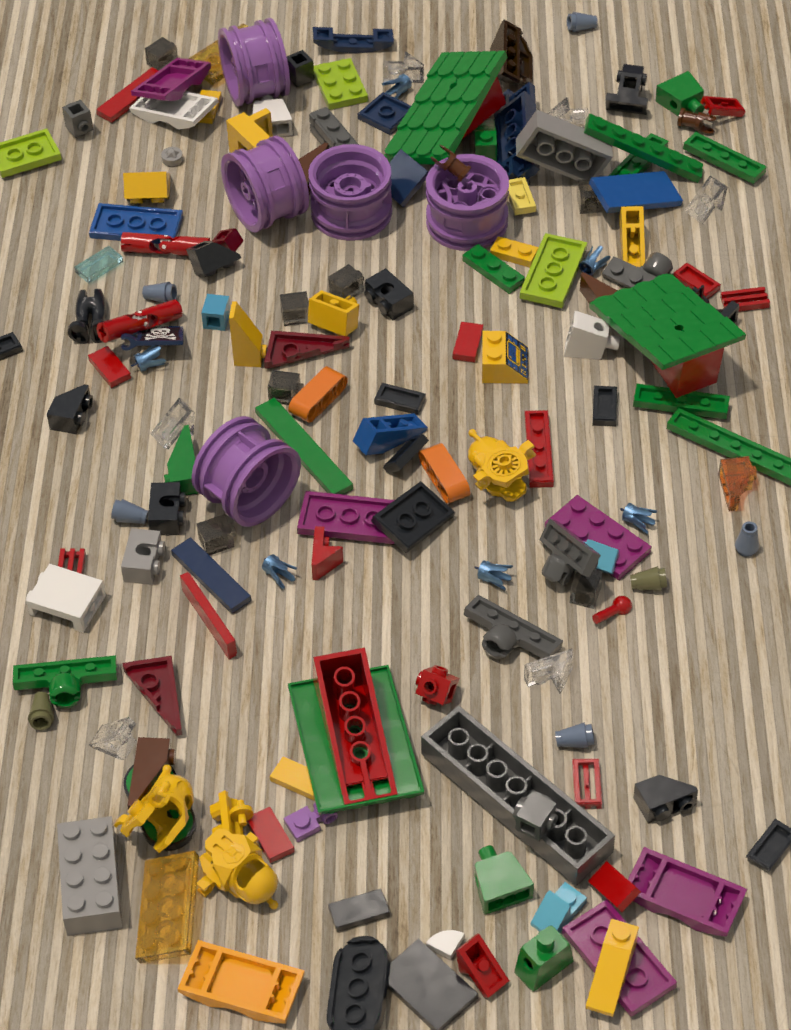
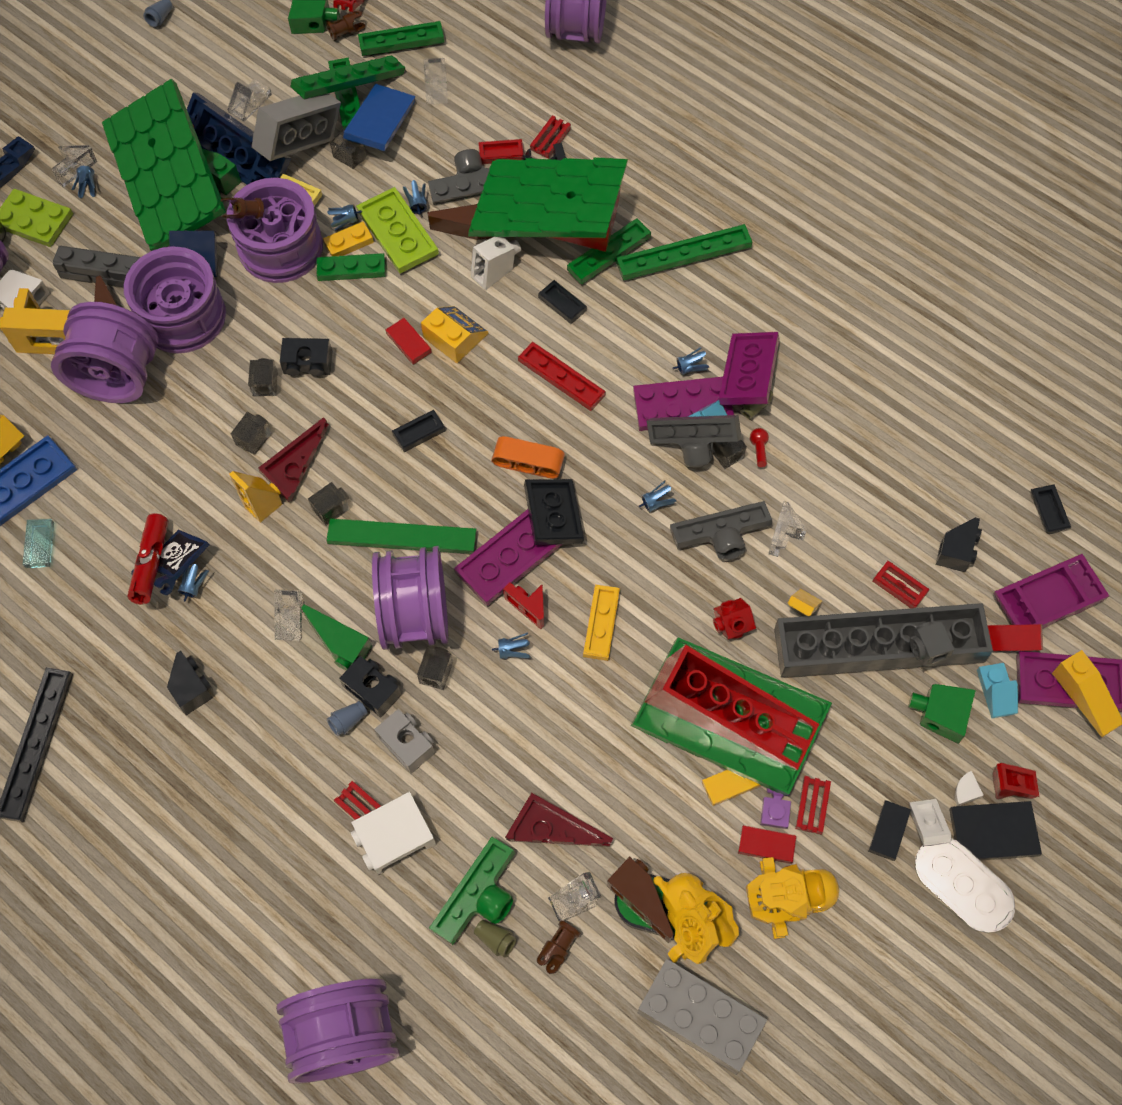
camera: 50 degrees left, 15 degrees up
(69, 752) = (557, 947): none -> reddish brown piece
(84, 307) = (80, 591): black piece -> none
(109, 366) = (165, 618): red tile -> none
(144, 243) = (82, 470): red piece -> none
(160, 292) = (125, 519): sand blue cone -> none
(167, 907) = (780, 975): clear yellow plate -> none
(208, 615) = (513, 733): red tile -> none
(210, 256) = (130, 454): black slope -> none
(211, 575) = (469, 701): dark blue tile -> none
(216, 312) = (193, 493): brick -> none
(229, 238) = (117, 427): dark red slope -> none
(231, 813) = (742, 870): yellow hips -> none
(241, 983) = (894, 968): light orange slope -> none
(318, 394) = (359, 485): orange beam -> none
(330, 840) = (816, 783): none -> red tile
(333, 313) = (288, 409): yellow brick -> none
(354, 611) = (601, 622): none -> yellow tile
(384, 113) = (103, 211): dark blue tile -> none
(384, 433) = (450, 465): blue slope -> none
(386, 926) = (930, 822): none -> white plate
(405, 453) = (483, 469): black tile -> none
(496, 719) = (804, 602): none -> yellow tile
(505, 475) = (565, 413): yellow helmet -> none
(519, 61) = (134, 77): dark brown wedge -> none
(533, 235) = (347, 215): none -> flat silver piece
(547, 955) = (1040, 728): green torso -> none
(576, 736) = (857, 558): sand blue cone -> none
(631, 81) = (275, 48): black tile -> none
(632, 235) = (420, 154): yellow slope -> none
(668, 550) = (749, 368): none -> magenta plate
(735, 478) = (714, 277): clear orange arch -> none
(747, 540) = (779, 312): sand blue cone -> none

